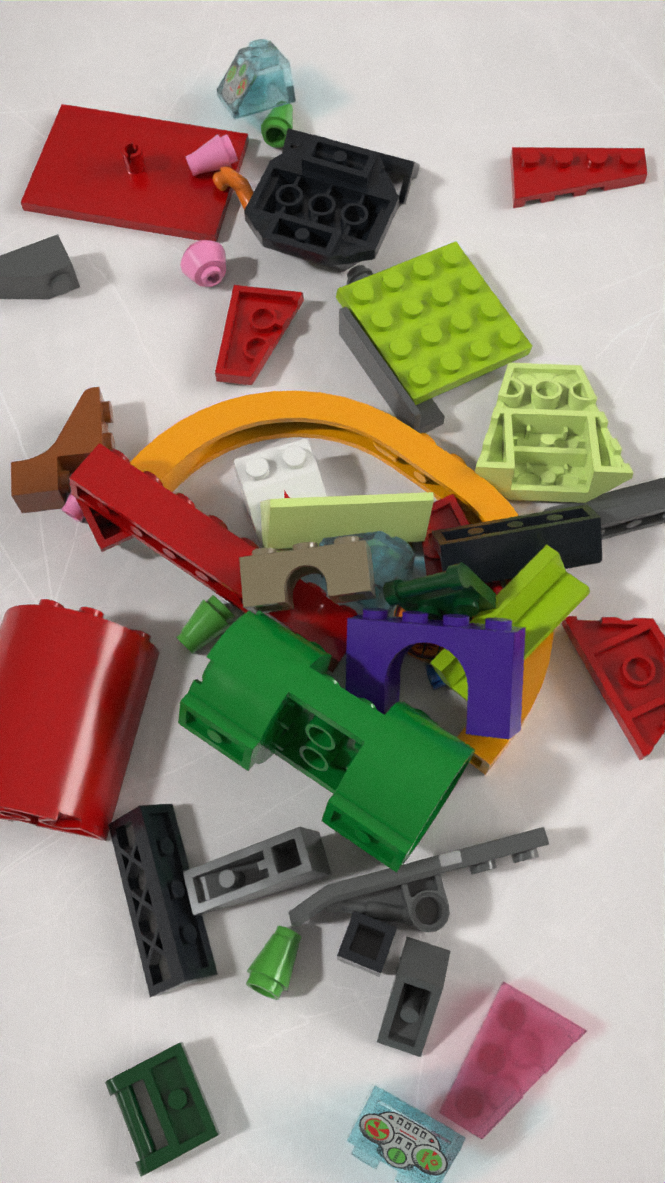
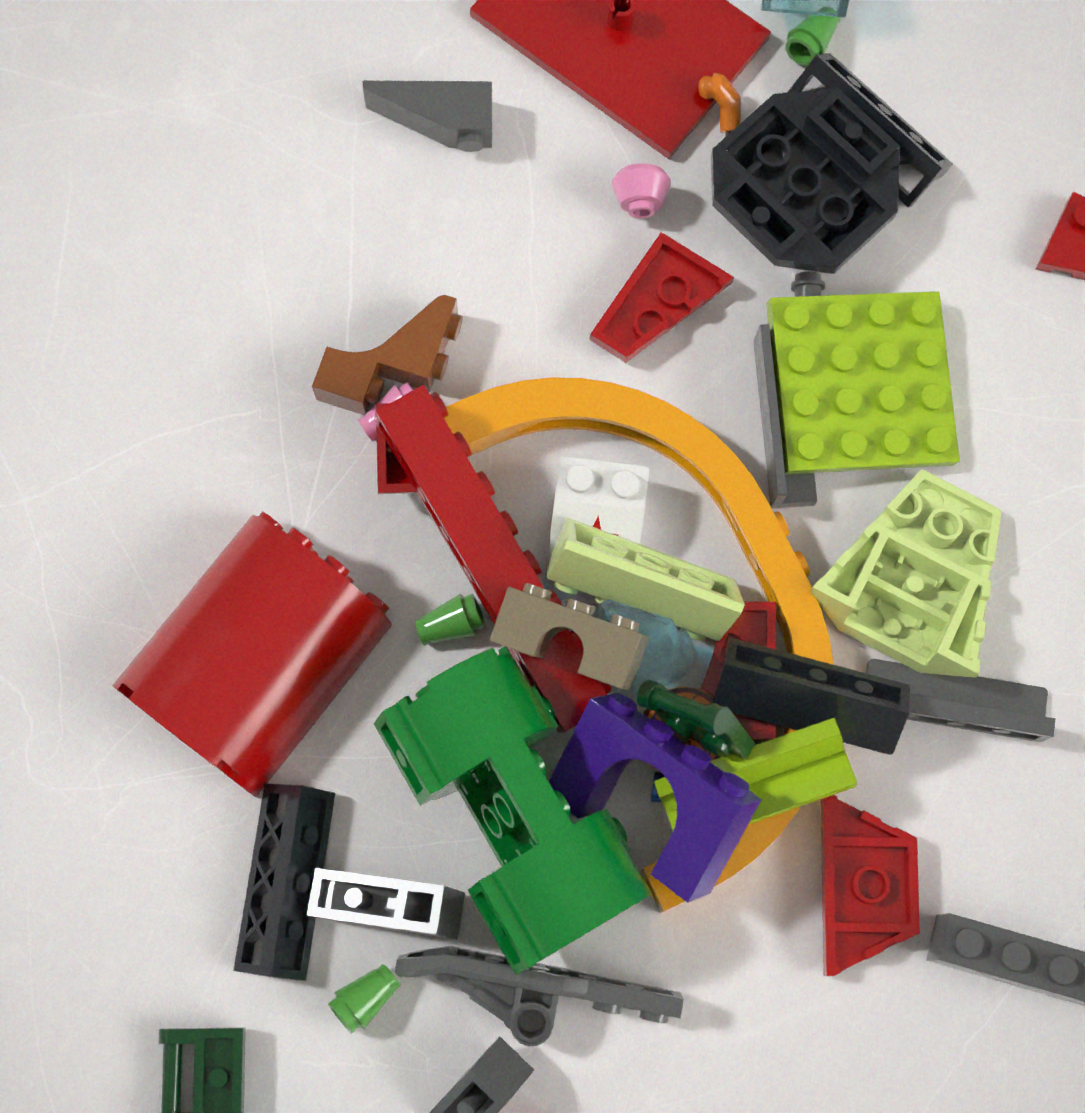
camera: 20 degrees right, 10 degrees up
(212, 155) = (712, 51): bright pink cone -> none
(366, 943) = (457, 1025): black brick -> none

